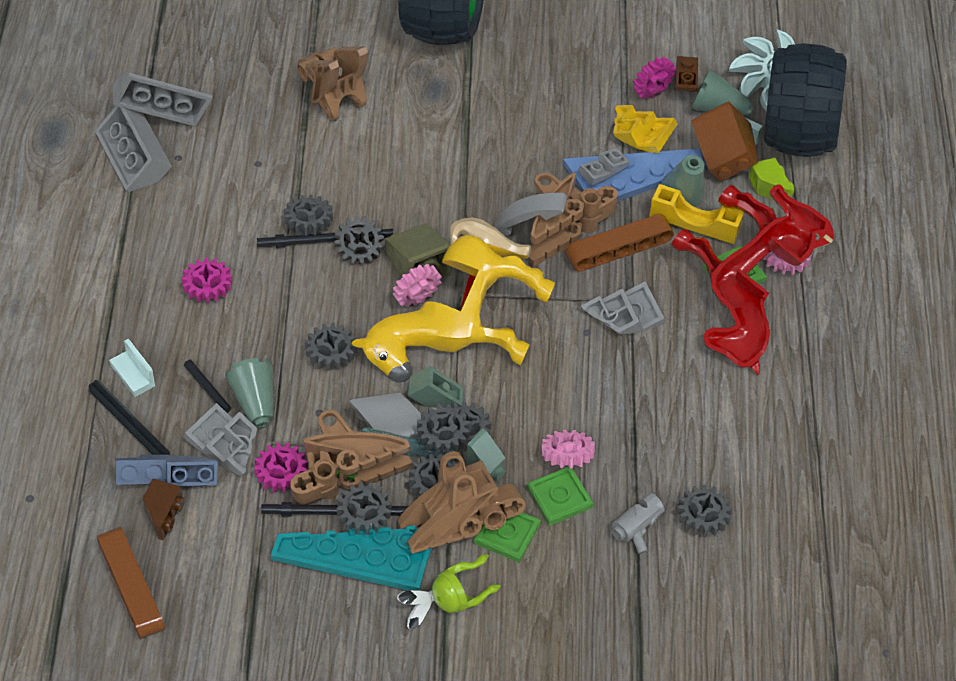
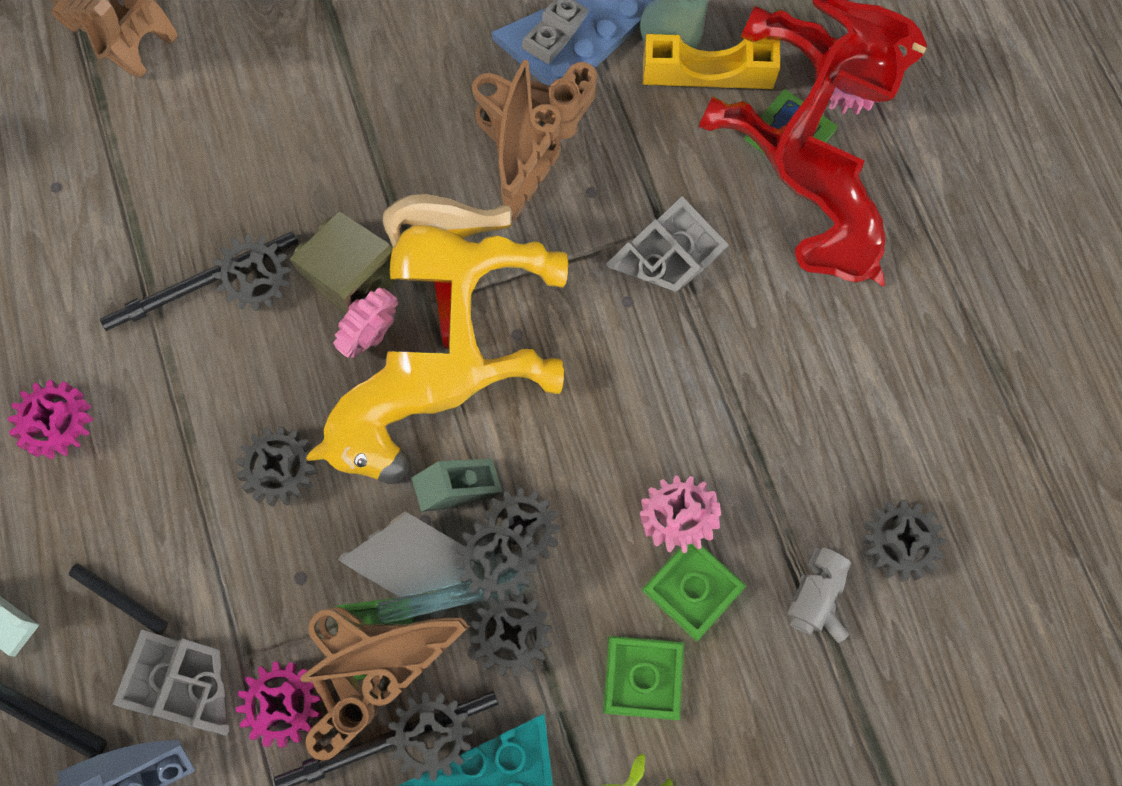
camera: 20 degrees left, 20 degrees up
(253, 389) = (191, 592): sand green cone -> none
(308, 215) = (161, 253): dark grey gear -> none
(454, 502) = (570, 681): medium nougat piece -> none
(485, 449) = (574, 581): sand green slope -> none
(543, 204) = (481, 143): light grey slope -> none
(619, 242) = (619, 143): dark orange beam -> none

